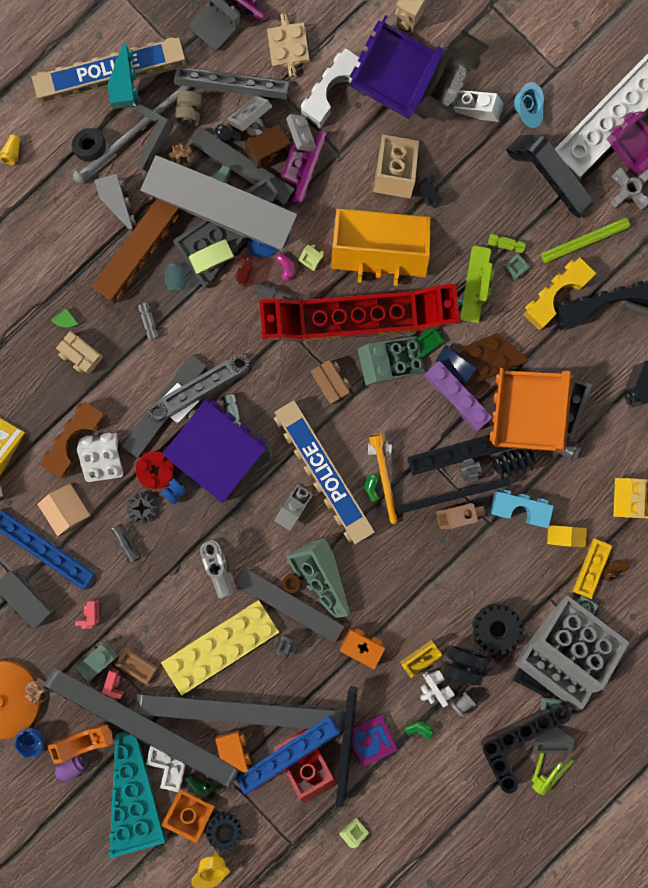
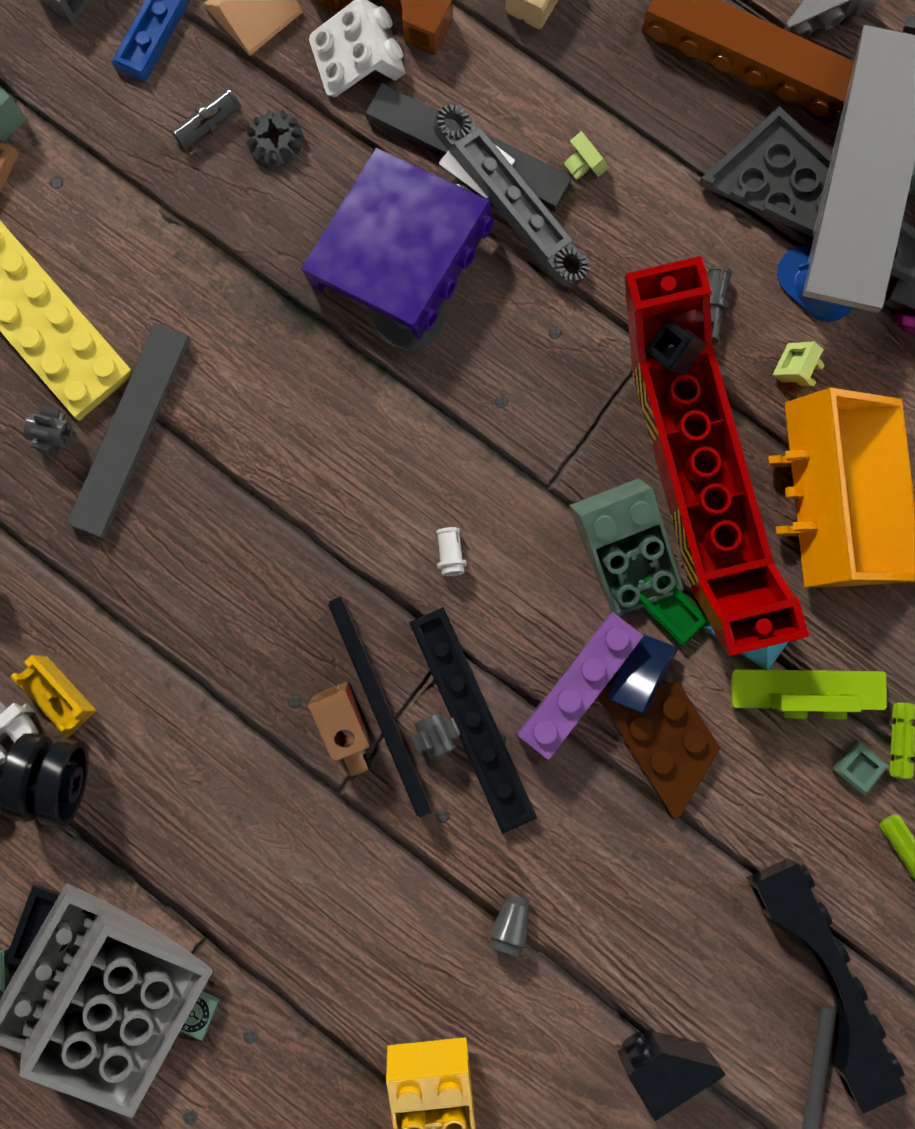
camera: 90 degrees right, 5 degrees down
(91, 611) = (69, 79): coral bracket -> none
(145, 465) = (336, 132): red plate -> none
(148, 321) = (620, 93): light grey axle -> none
(173, 277) = (710, 121): clear light blue brick -> none
(174, 491) = (311, 185): blue wheel -> none
(182, 344) = (585, 158): none -> yellowish green tile
(211, 256) = (765, 173): yellowish green slope -> none
(219, 577) = (178, 277): light grey connector -> none
(232, 408) = (484, 266): light aqua axle -> none
(243, 273) = (745, 246): clear red bracket -> none
(288, 266) = (771, 325): dark pink arm -> none
(291, 583) = (170, 427): reddish brown tile -> none
(293, 507) = (314, 405): light grey slope -> none
(299, 319) = (675, 346): none -> black slope
(319, 569) = (206, 471): sand green wedge -> none
(324, 472) = (388, 451): brick -> none
(330, 381) = (565, 437): medium nougat brick -> none
(368, 657) = (44, 587): orange brick -> none
(370, 486) = (376, 545): green arm -> none
(377, 441) = (462, 541): light orange piece -> none
(483, 624) = (158, 843): black tyre -> none
(514, 462) = (465, 821): black piece -> none
(531, 410) = (575, 841): orange panel -> none
(538, 511) = (374, 886): medium azure arch -> none
(566, 536) = (333, 953): yellow slope -> none
(575, 277) = (863, 891): yellow arch -> none
(578, 399) = (593, 922): dark grey brick -> none
(592, 568) = (276, 1016): yellow tile -> none
(613, 568) = (281, 1060): reddish brown arm -> none

